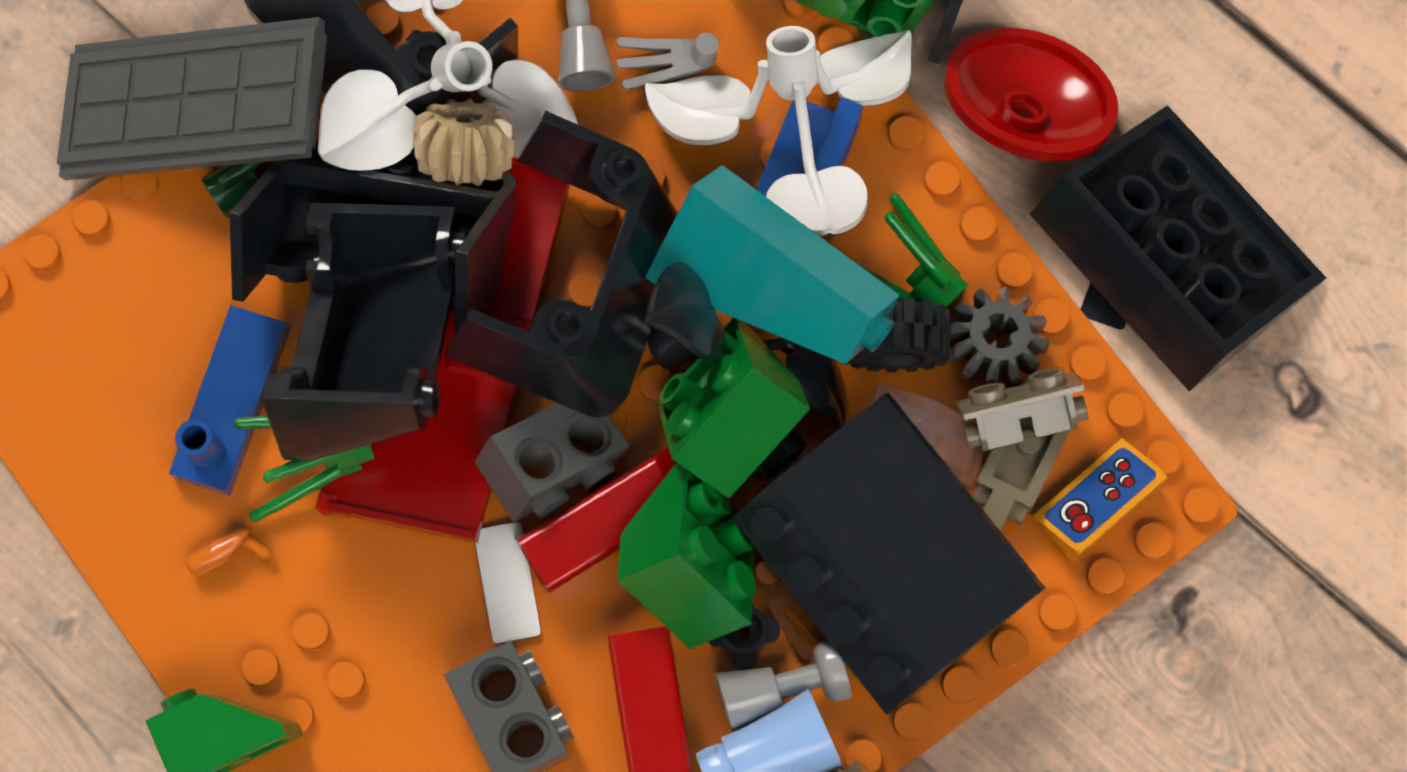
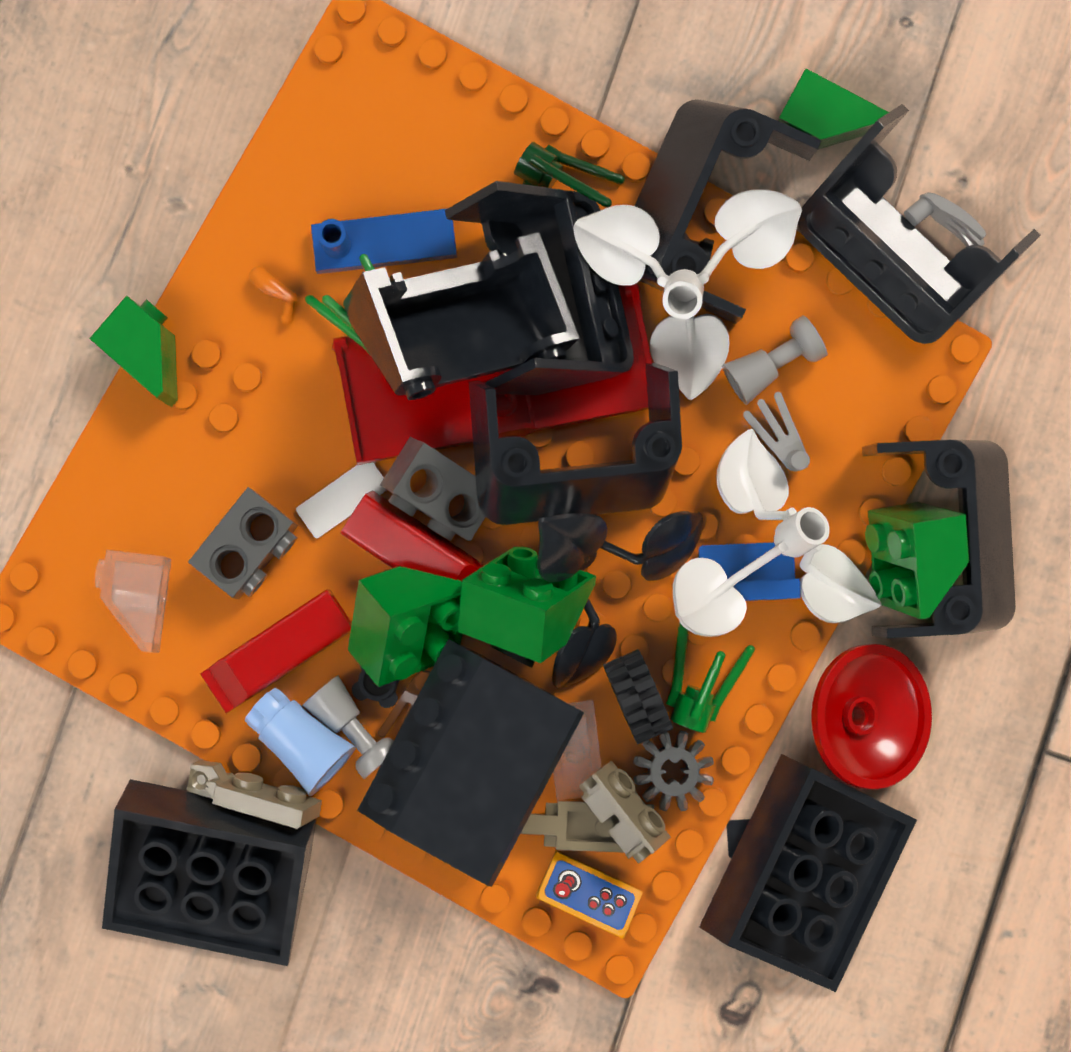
camera: 70 degrees right, 10 degrees up
(193, 100) = (586, 108): dark grey piece -> none
(464, 142) = (637, 320): tan gear -> none
(775, 270) = (633, 592): teal slope -> none

